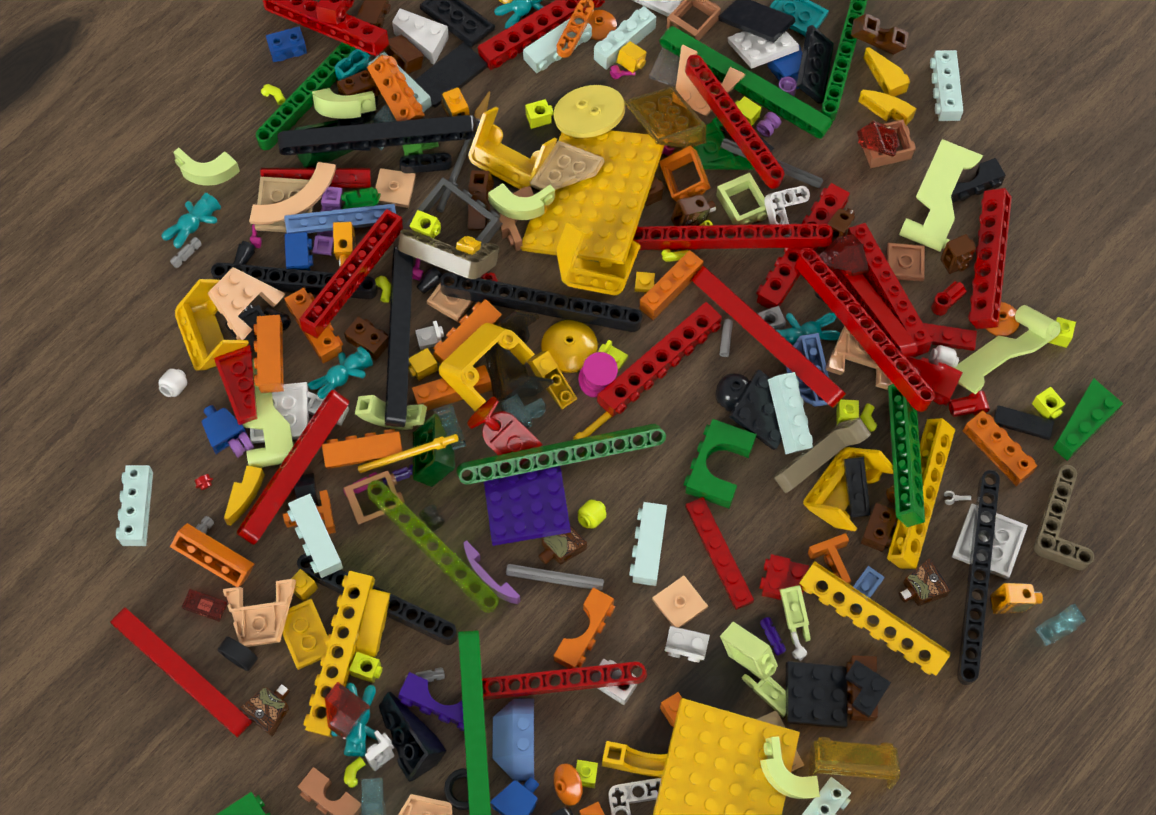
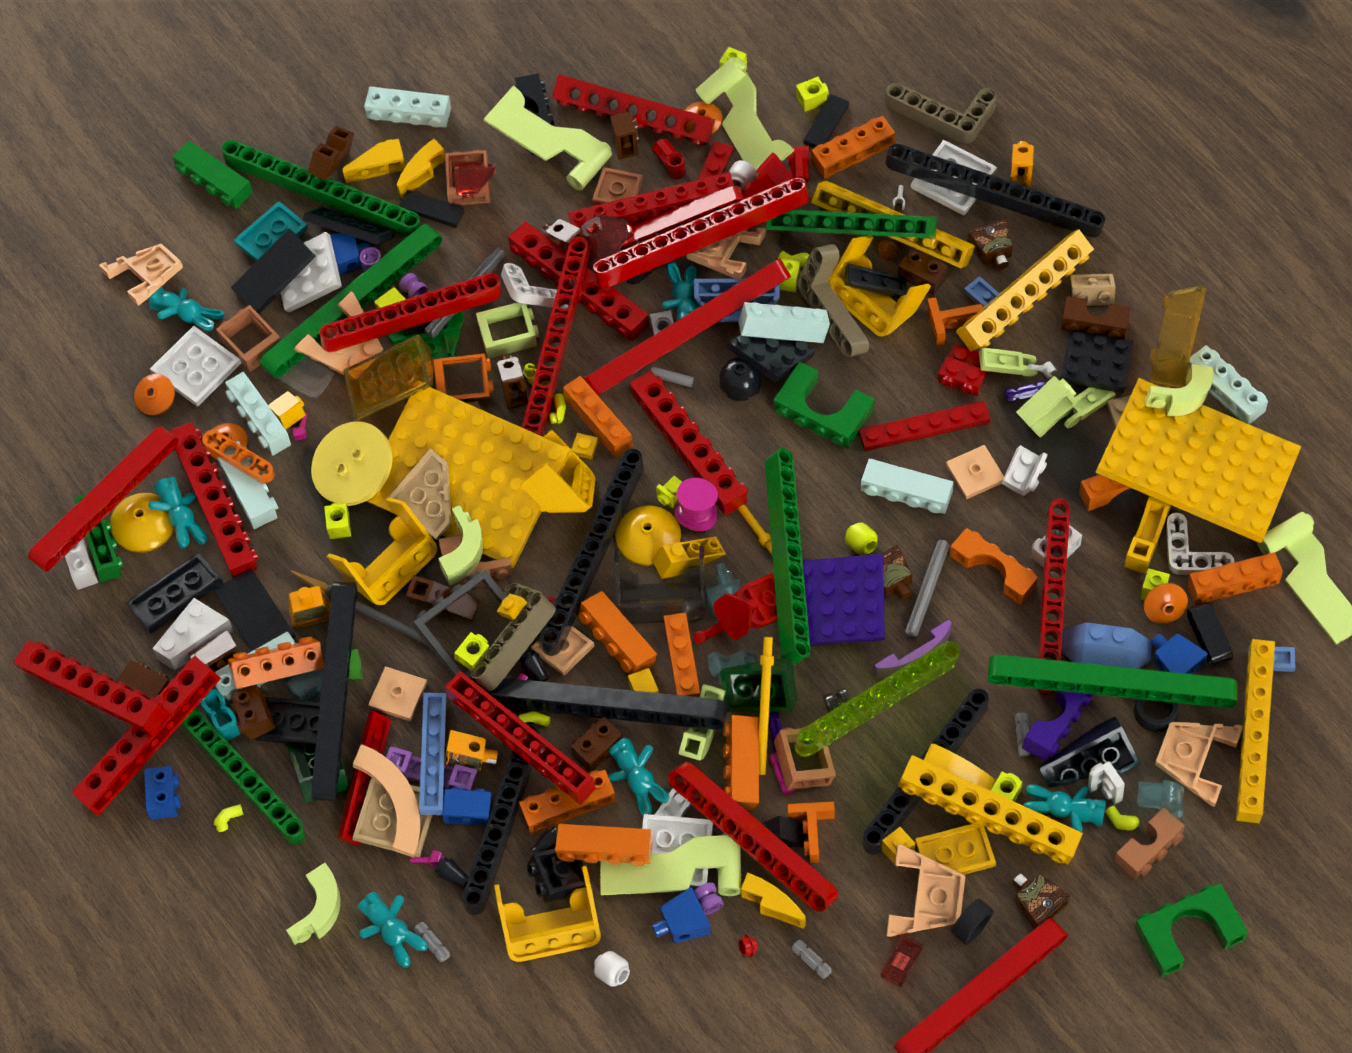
camera: 75 degrees left, 5 degrees down
(135, 505) = (766, 1025): light aqua brick -> none
(212, 555) = (849, 936): orange brick -> none
(235, 293) = (520, 876): light nougat wing -> none
(238, 380) = (628, 886): red wing -> none
(315, 536) = (849, 815): light aqua brick -> none
(341, 106) = (277, 735): yellowish green arch -> none
(343, 710) = (1059, 807): clear red slope -> none
(368, 198) = (411, 728): green hinge -> none
(413, 159) = (379, 660): black beam -> none
(429, 336) = (606, 674): white bracket -> none
(459, 369) = (656, 621): yellow windscreen -> none
(851, 124) = (432, 208): none -> black tile
(871, 685) = (1100, 304): black plate -> none
(901, 684) = (1096, 288): none -> tan bracket
(1060, 625) = (1054, 134): clear light blue brick -> none
(1089, 417) = (836, 63): green wedge -> none

